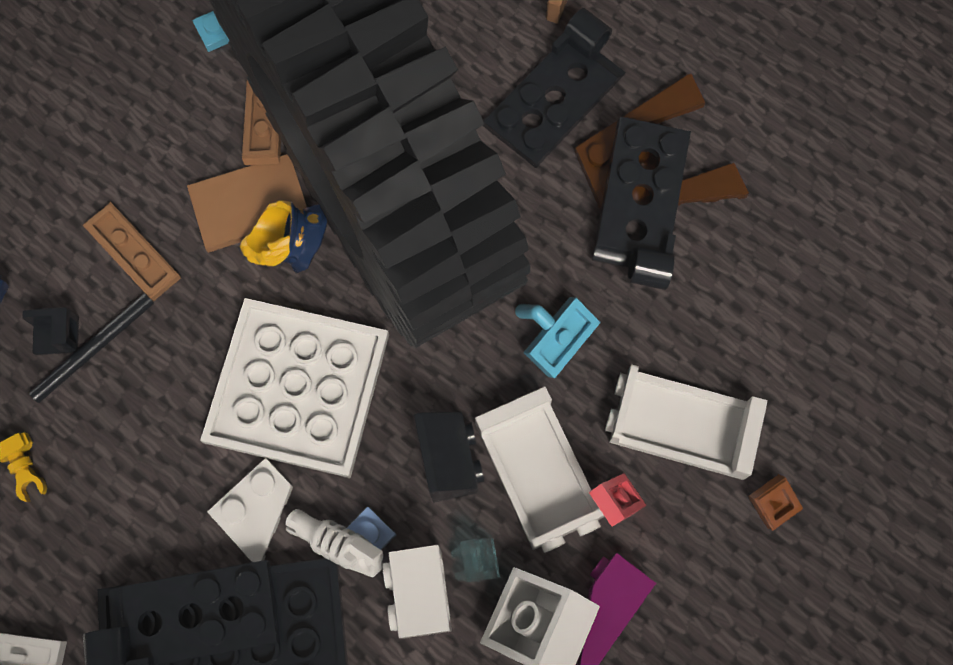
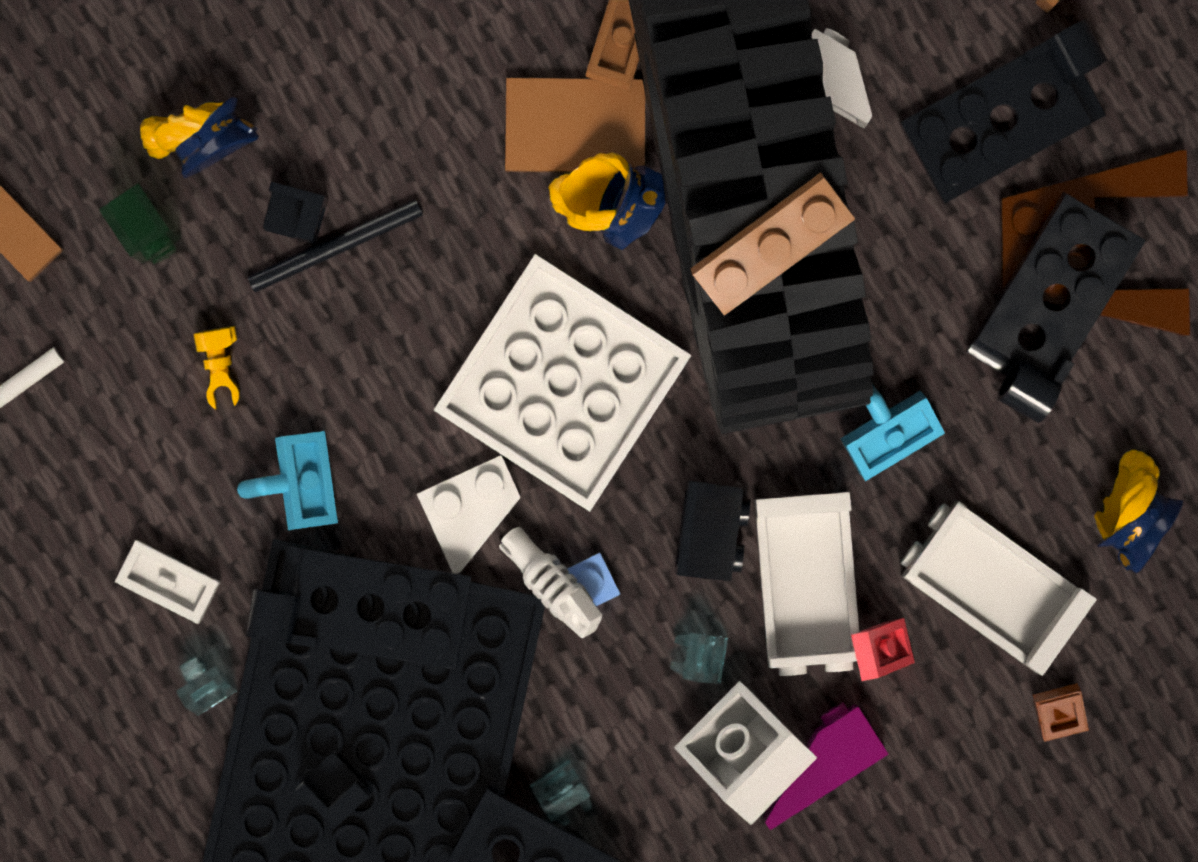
camera: 15 degrees right, 15 degrees up
(110, 533) = (302, 479): none -> medium azure plate
(132, 251) = (414, 138): medium nougat tile -> none
(377, 88) = (772, 244): none -> medium nougat plate
(418, 592) = (627, 673): white brick -> none
(768, 327) = (1136, 512): none -> piece

